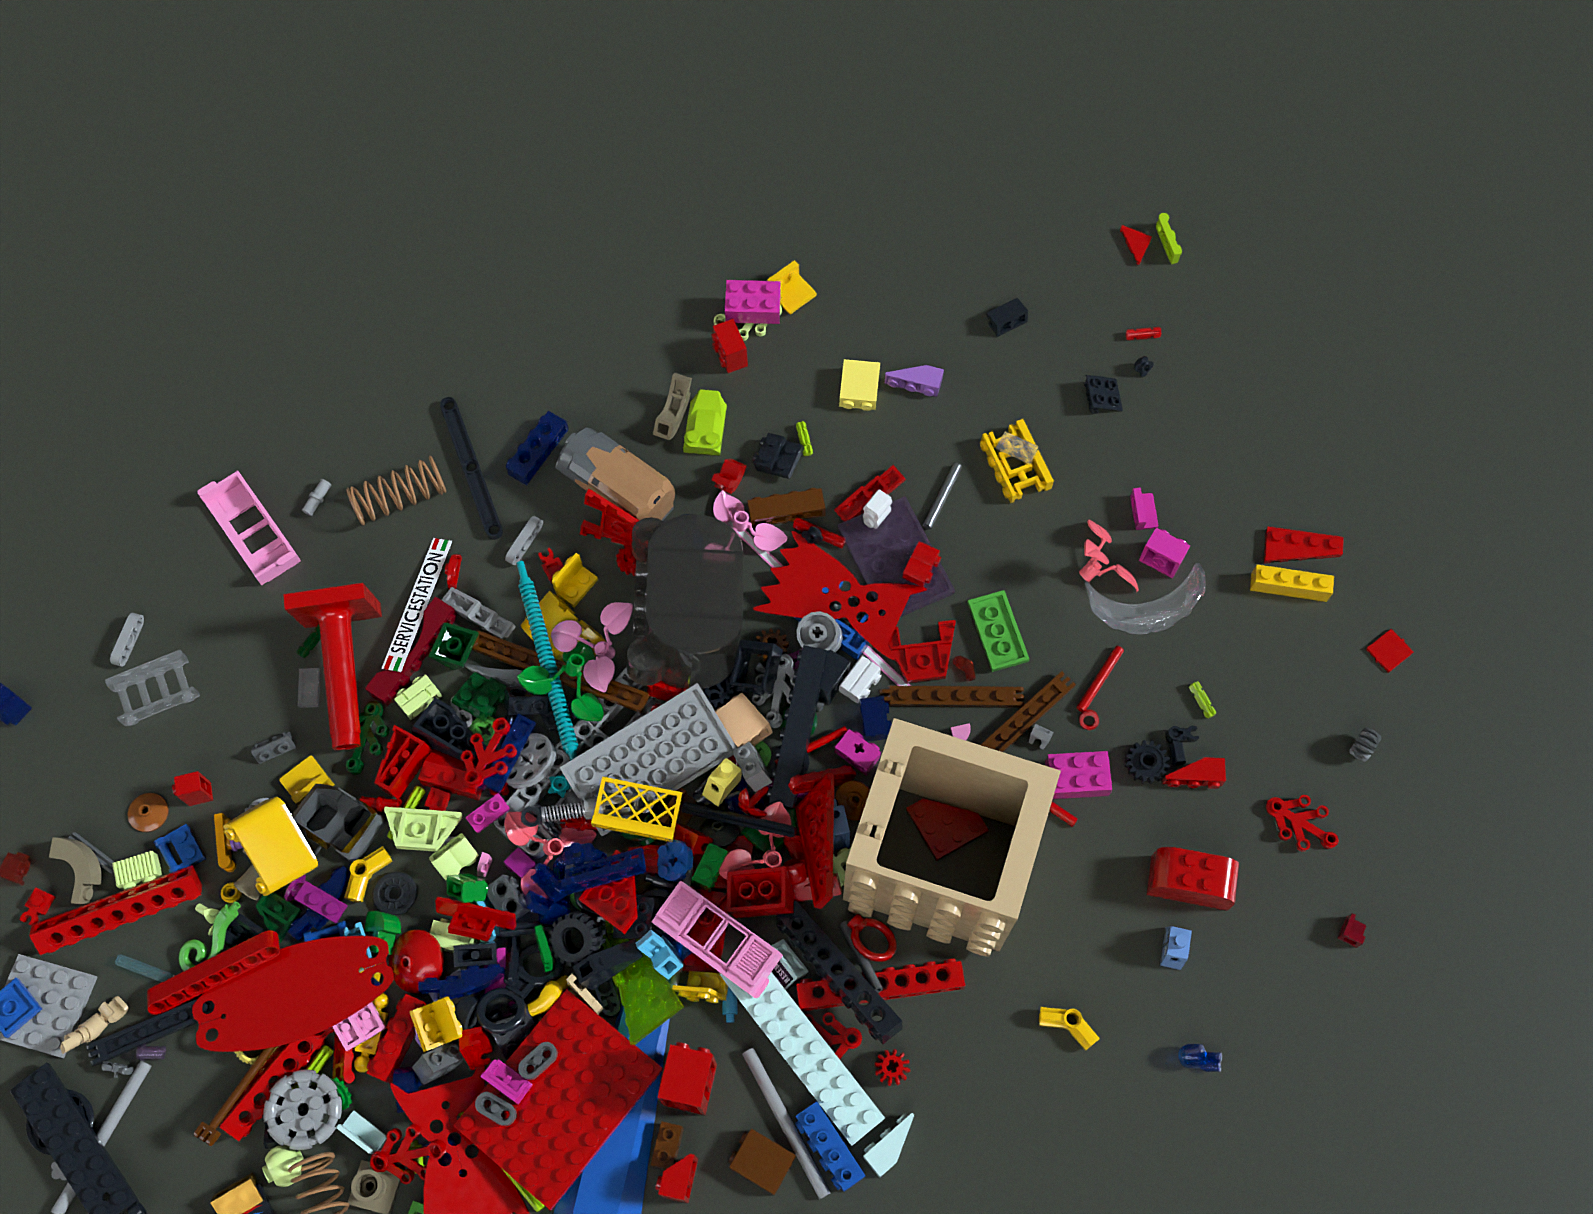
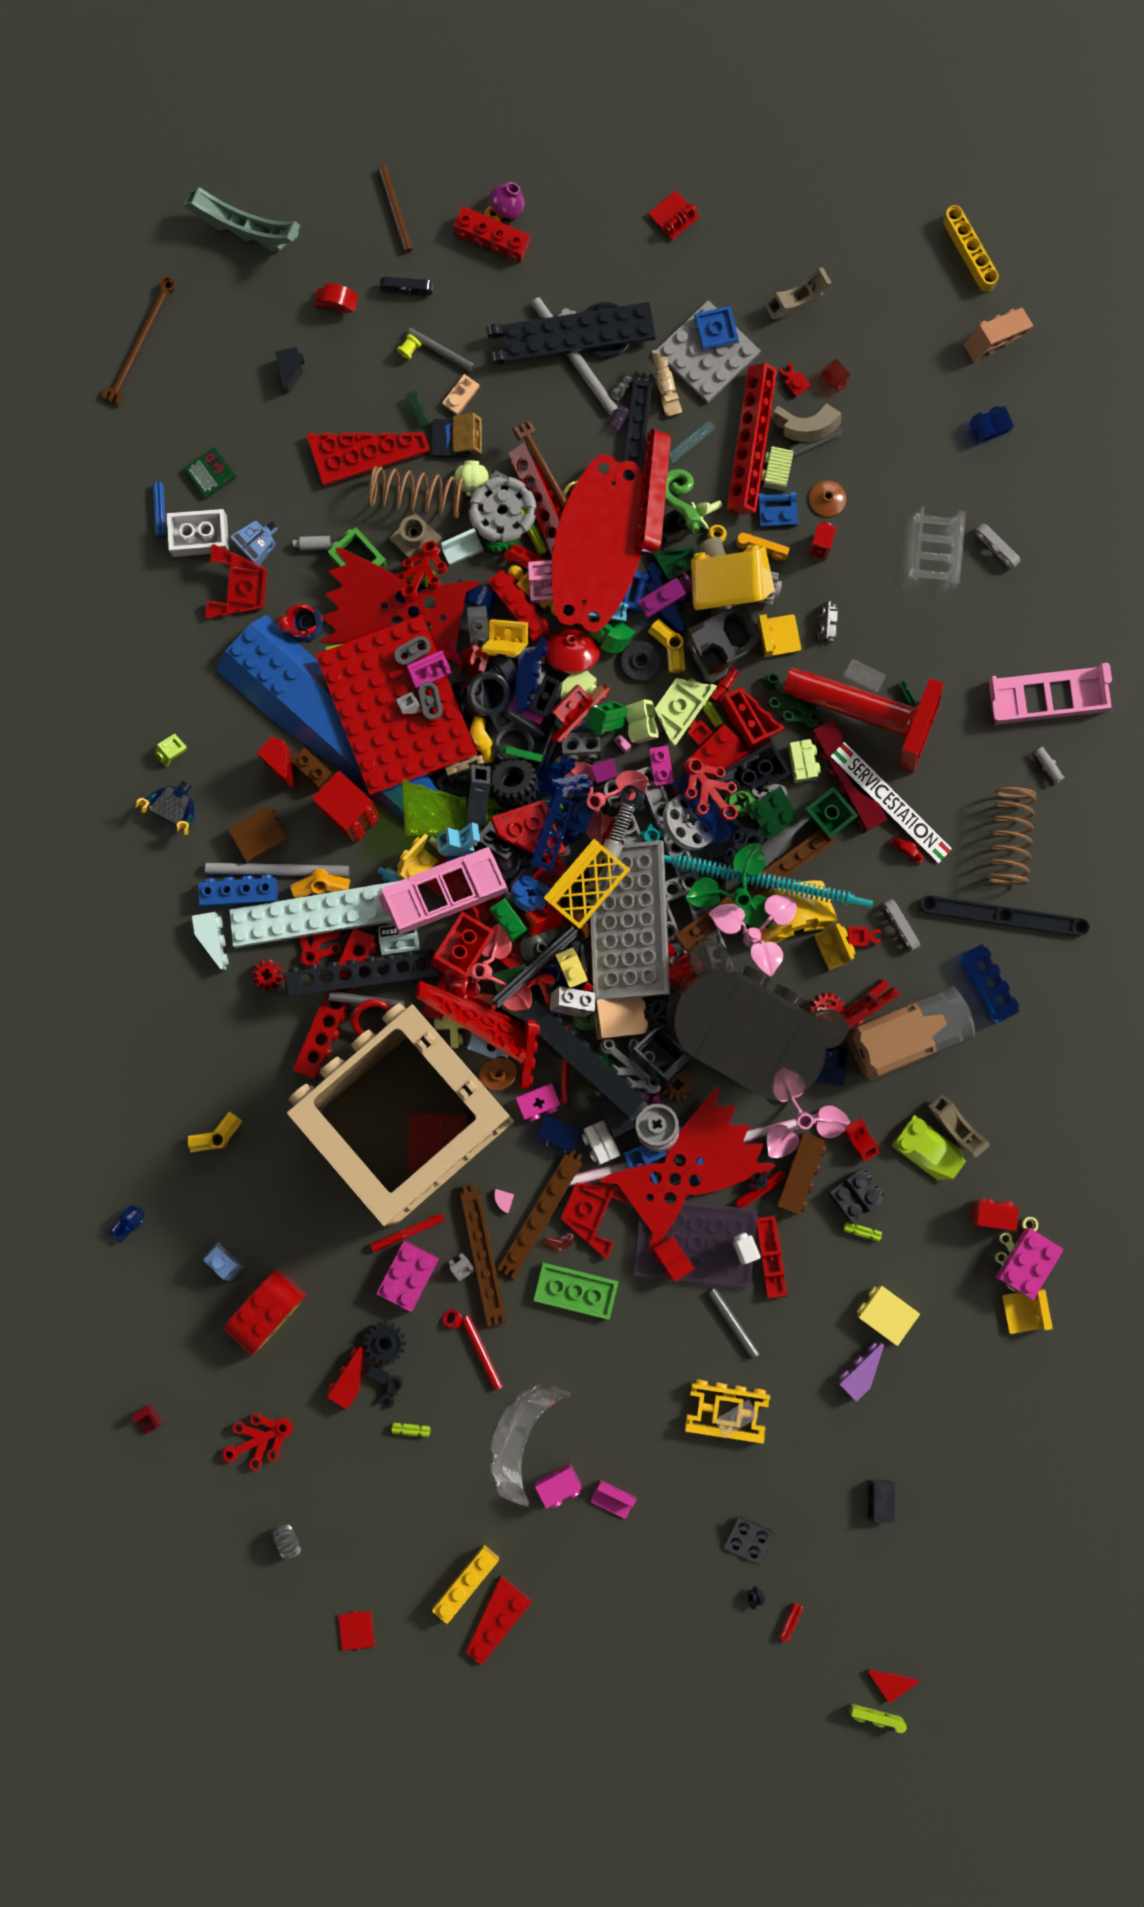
camera: 120 degrees right, 15 degrees up
(478, 614) = (853, 849): light grey slope -> none
(551, 1081) = (408, 704): none -> light grey slope
(776, 1070) = (319, 883): none -> light orange piece
(1093, 567) = (587, 1413): coral plant -> none

